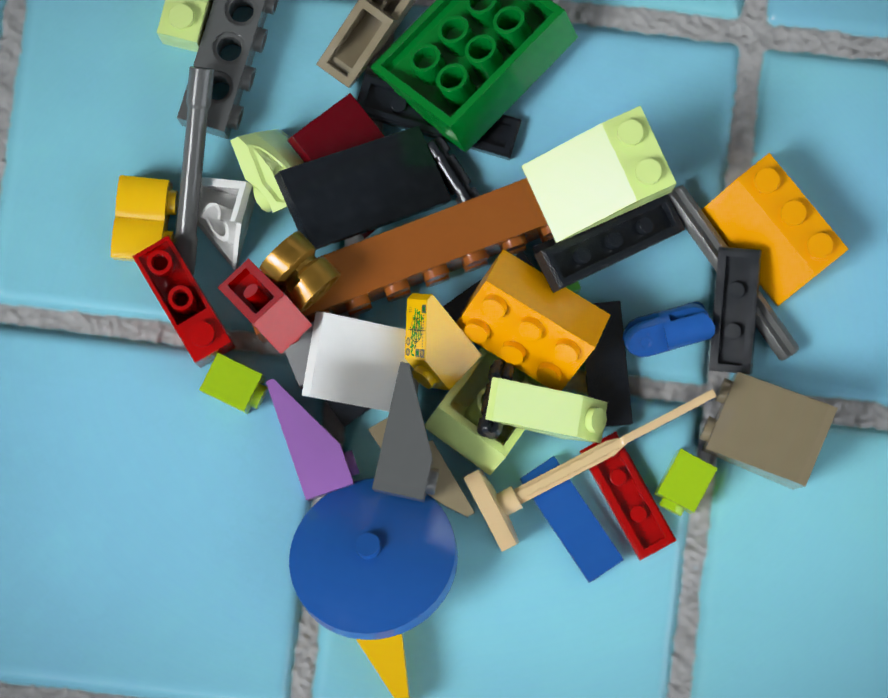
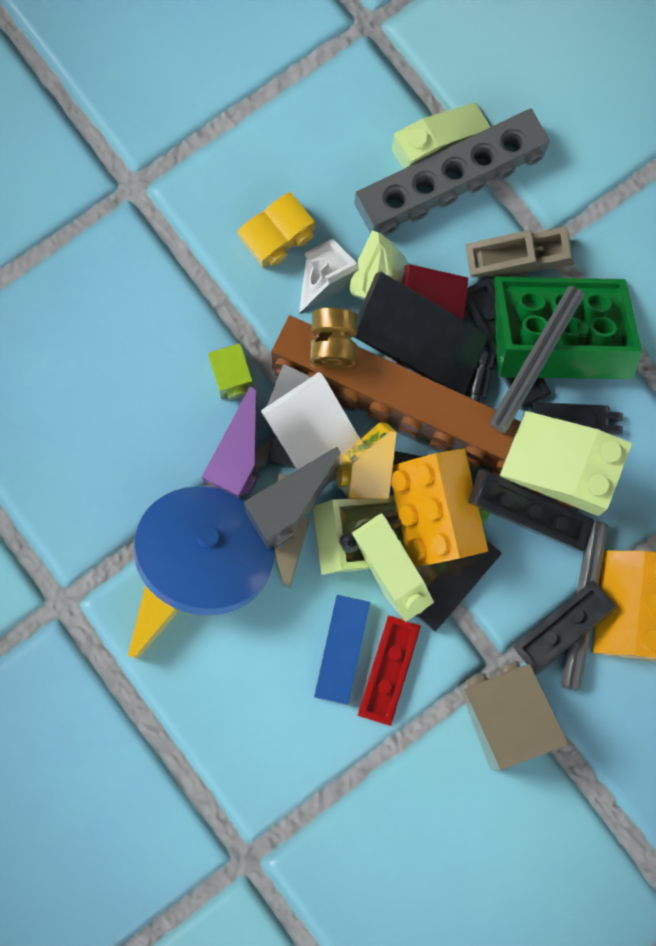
camera: 35 degrees right, 5 degrees down
(184, 301) = (251, 297): red slope -> none
(198, 103) = (376, 194): dark grey piece -> none
(265, 306) = (292, 338): red slope -> none
(485, 110) = (536, 359): none -> dark grey axle
(498, 506) = (307, 597): tan piece -> none
(567, 119) = (582, 414): none -> black hinge
(668, 330) = (513, 598): blue arm -> none
(684, 483) = (430, 697): lime brick -> none

